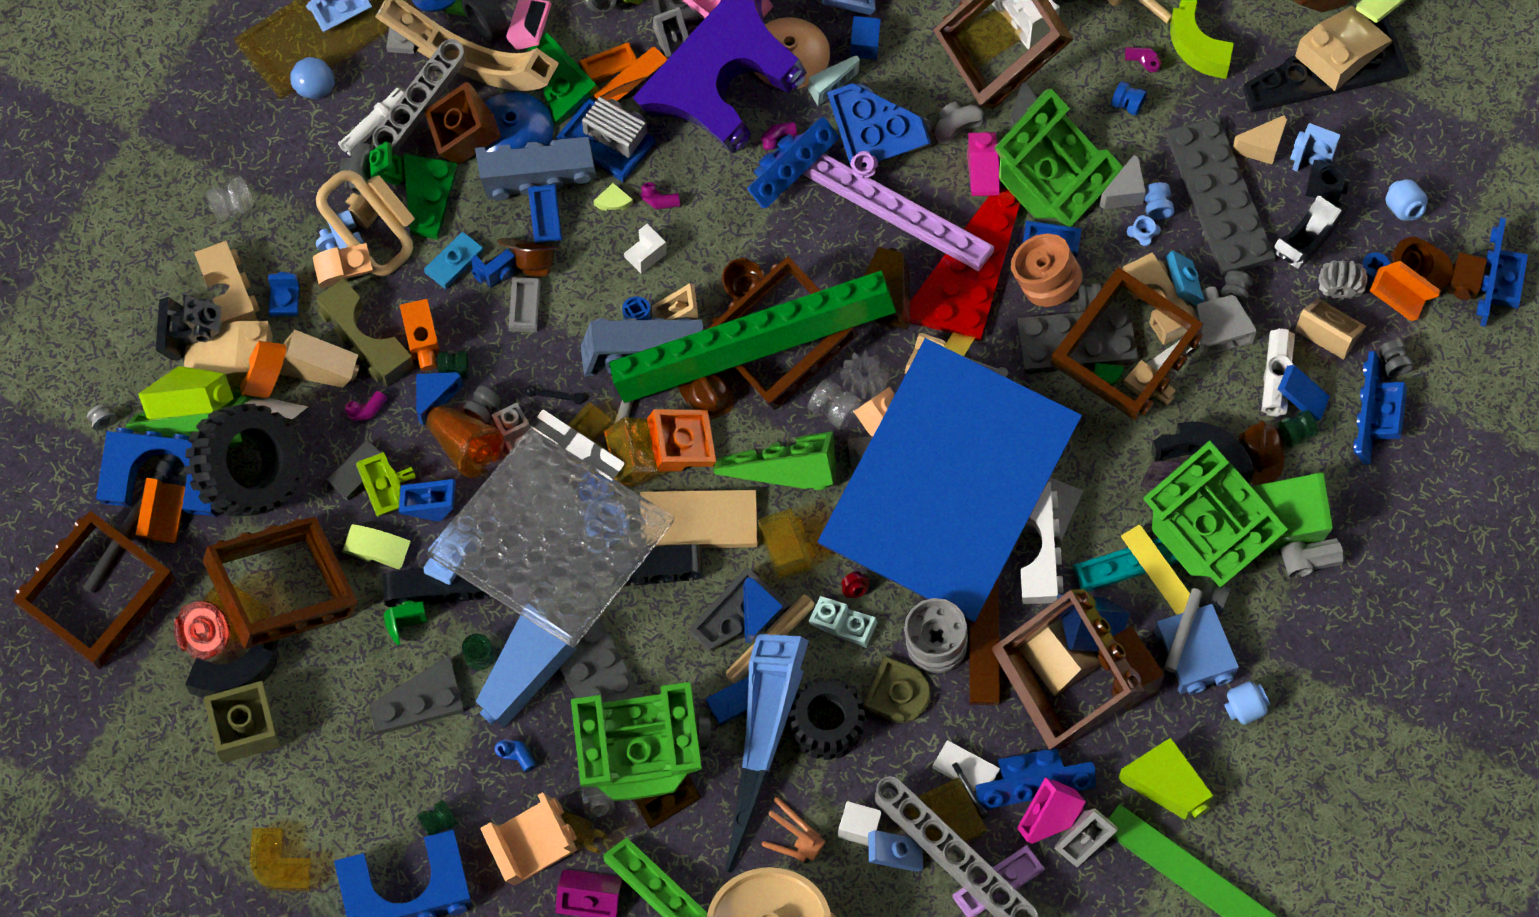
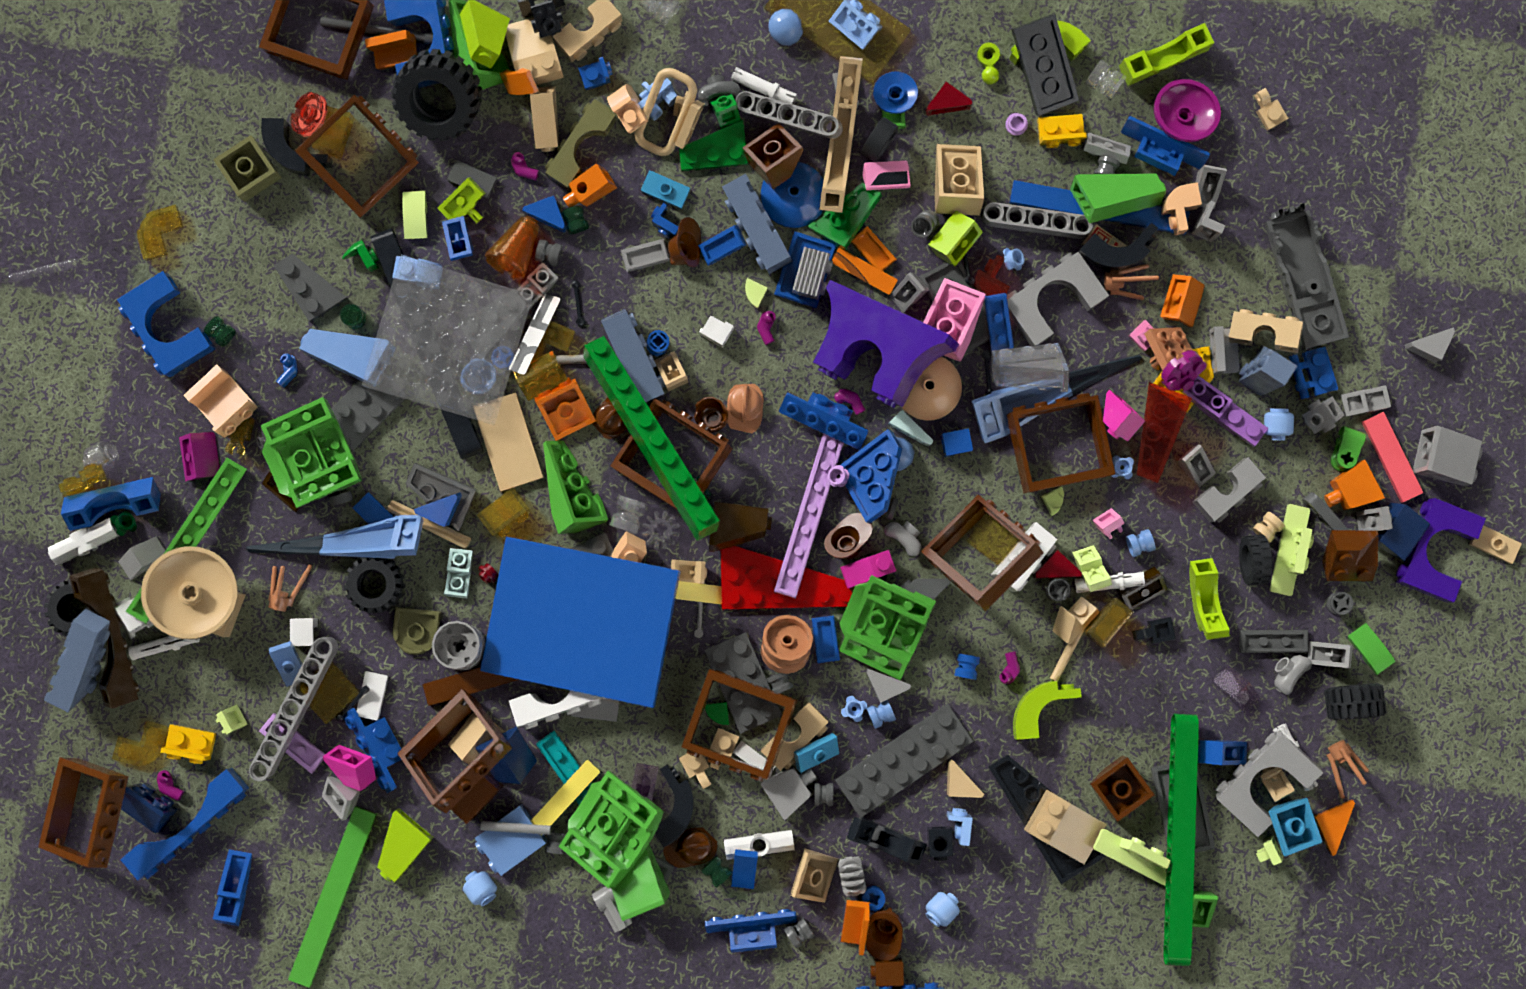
camera: 70 degrees right, 20 degrees up
(286, 409) = (497, 101): white sticker -> none
(743, 241) = (745, 407): none -> nougat piece
(938, 172) = (848, 537): none -> piece
(1162, 418) = (696, 766): none -> tan plate

